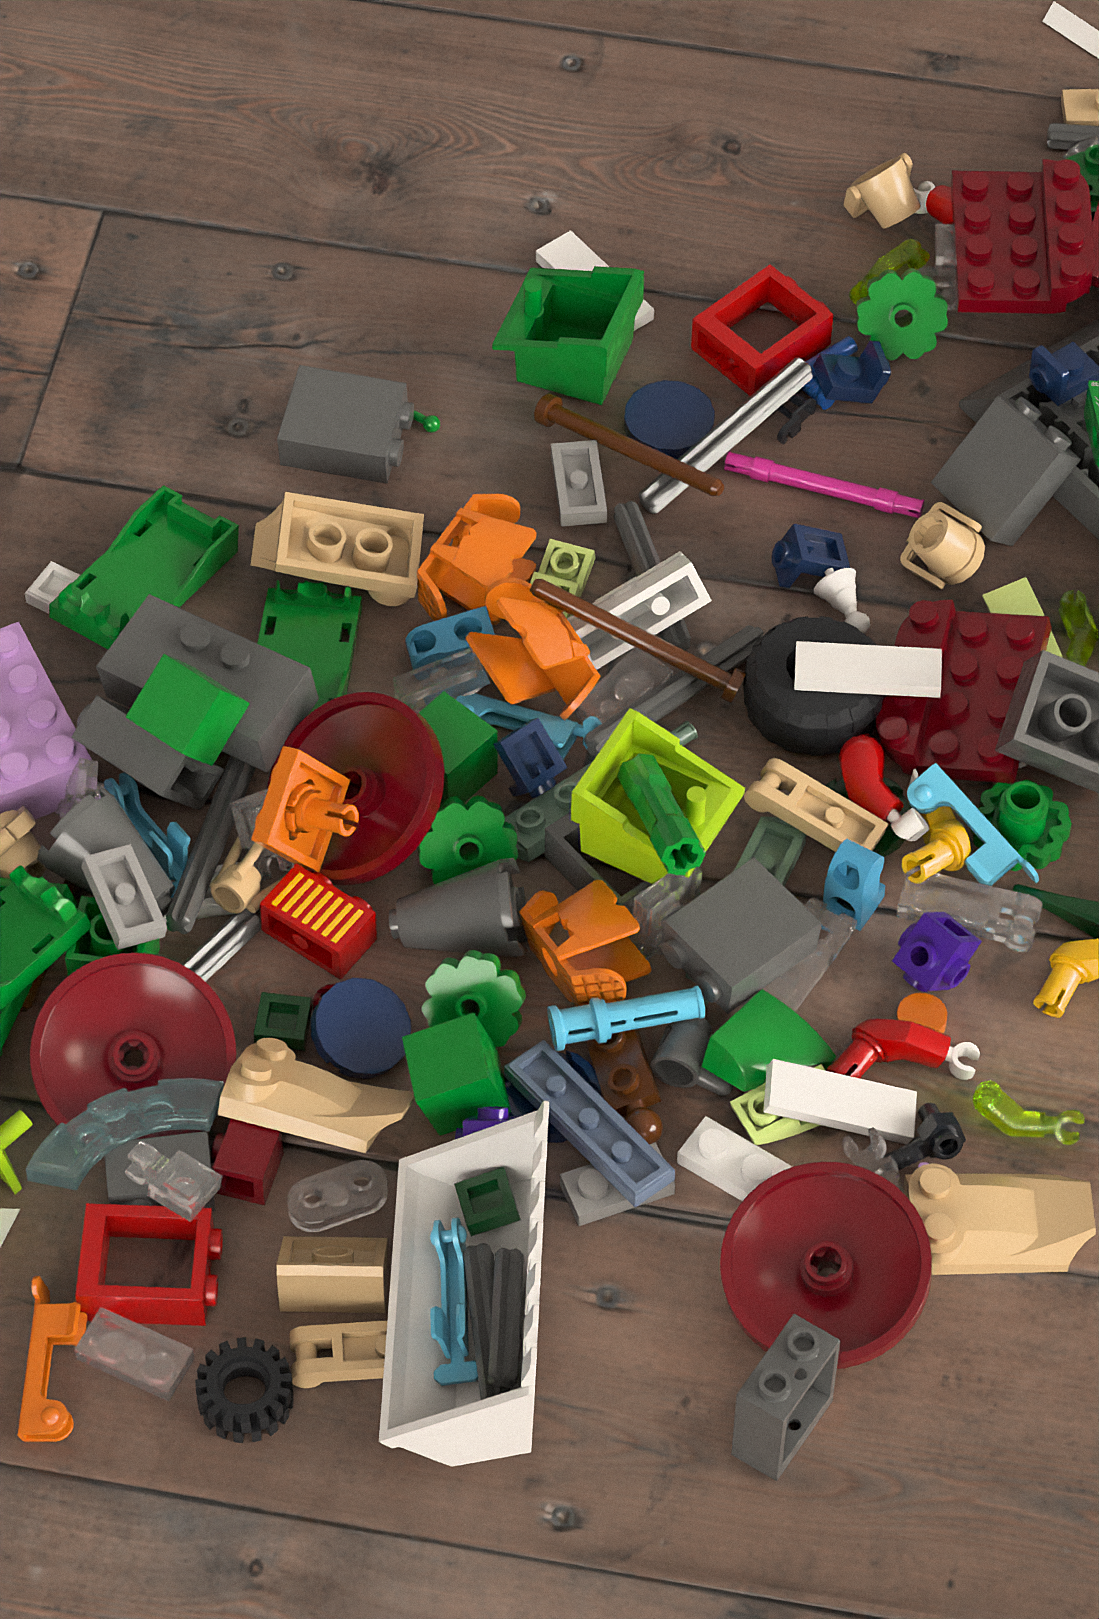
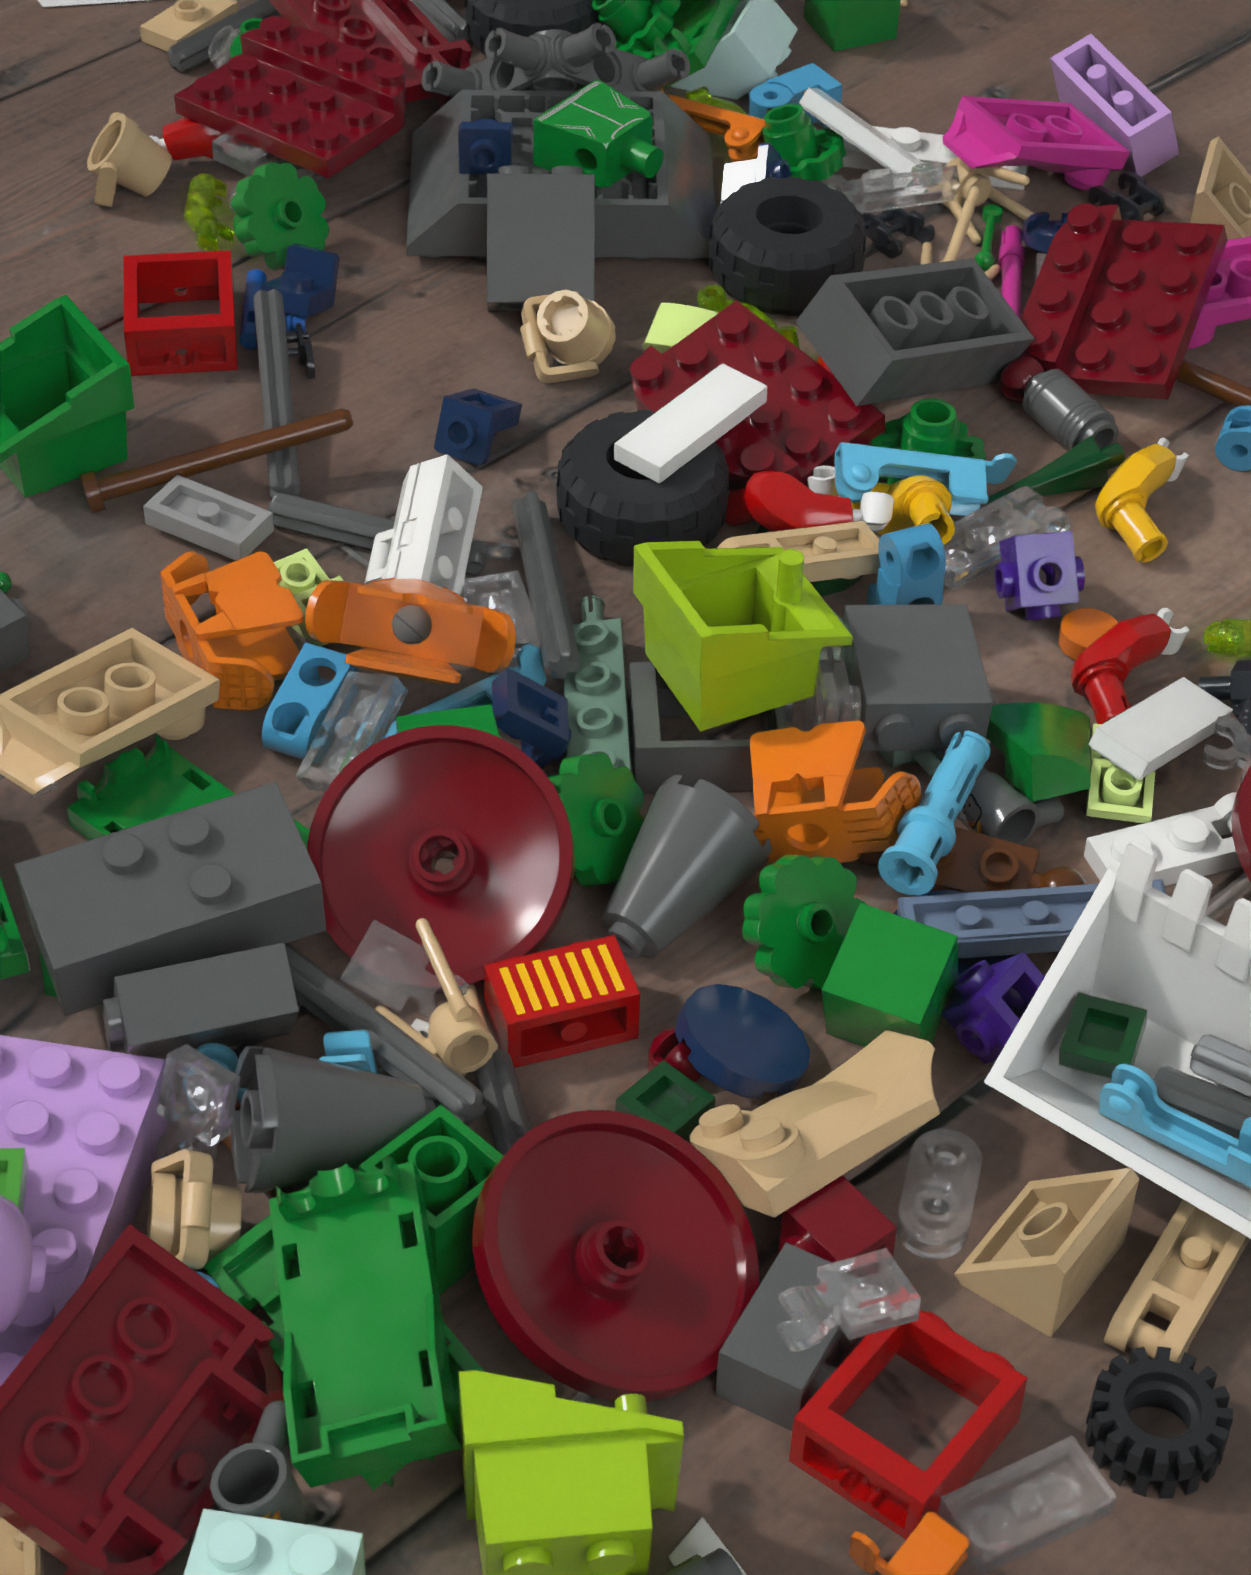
camera: 55 degrees left, 10 degrees down
(119, 1118) = (701, 1317): clear light blue tile -> none
(124, 896) = (421, 1111): light grey plate -> none
(187, 710) = (242, 891): green head -> none
(303, 809) = (456, 892): orange plate -> none
(639, 638) = (584, 536): reddish brown bar -> none
(665, 822) = (828, 599): green axle -> none
(668, 416) = (198, 419): dark blue tile -> none
(839, 590) = (543, 424): white piece -> none
(881, 499) = (455, 351): dark pink piece -> none

